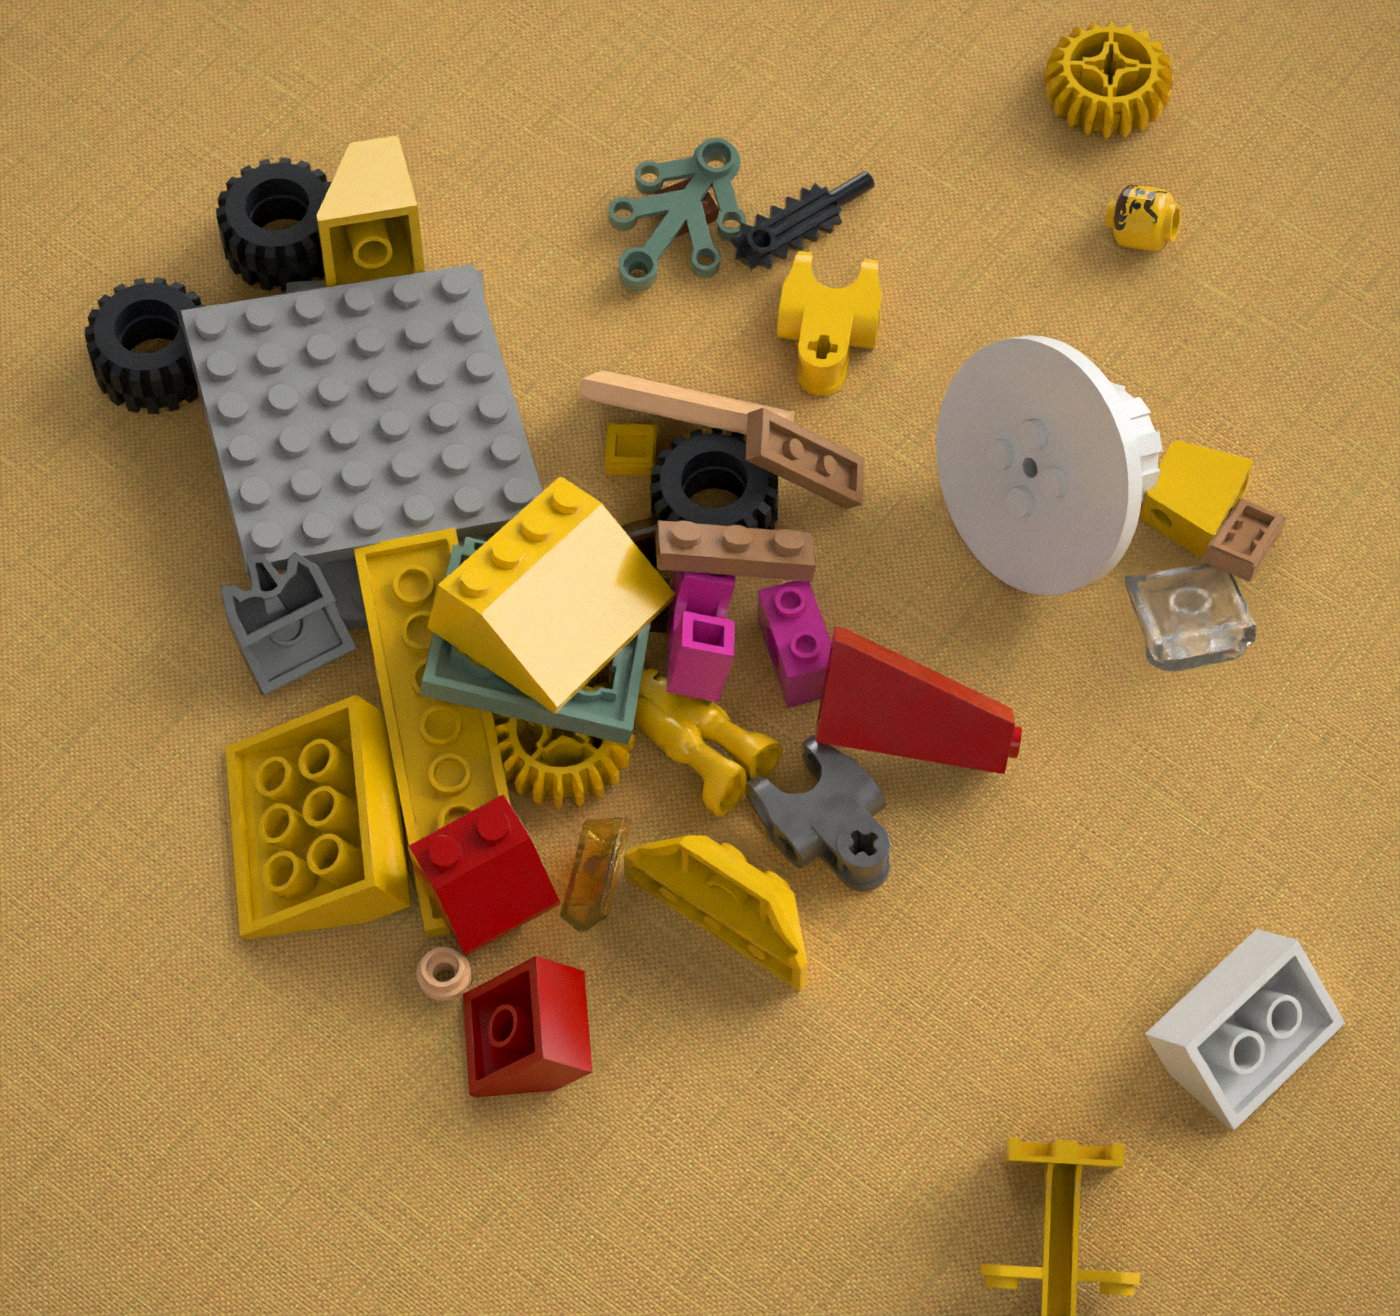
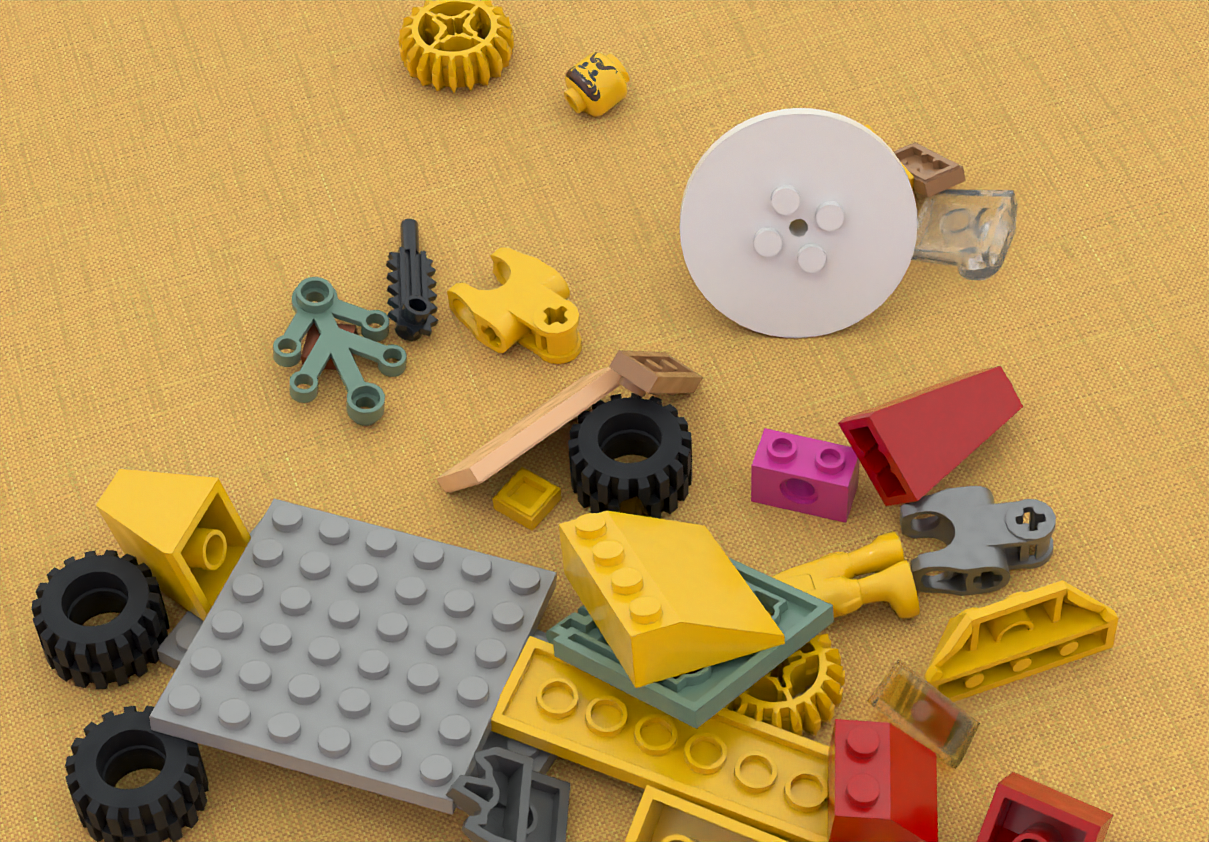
camera: 55 degrees left, 10 degrees down
(700, 635) = (782, 529): dark pink arch -> none
(735, 550) = (709, 456): medium nougat plate -> none

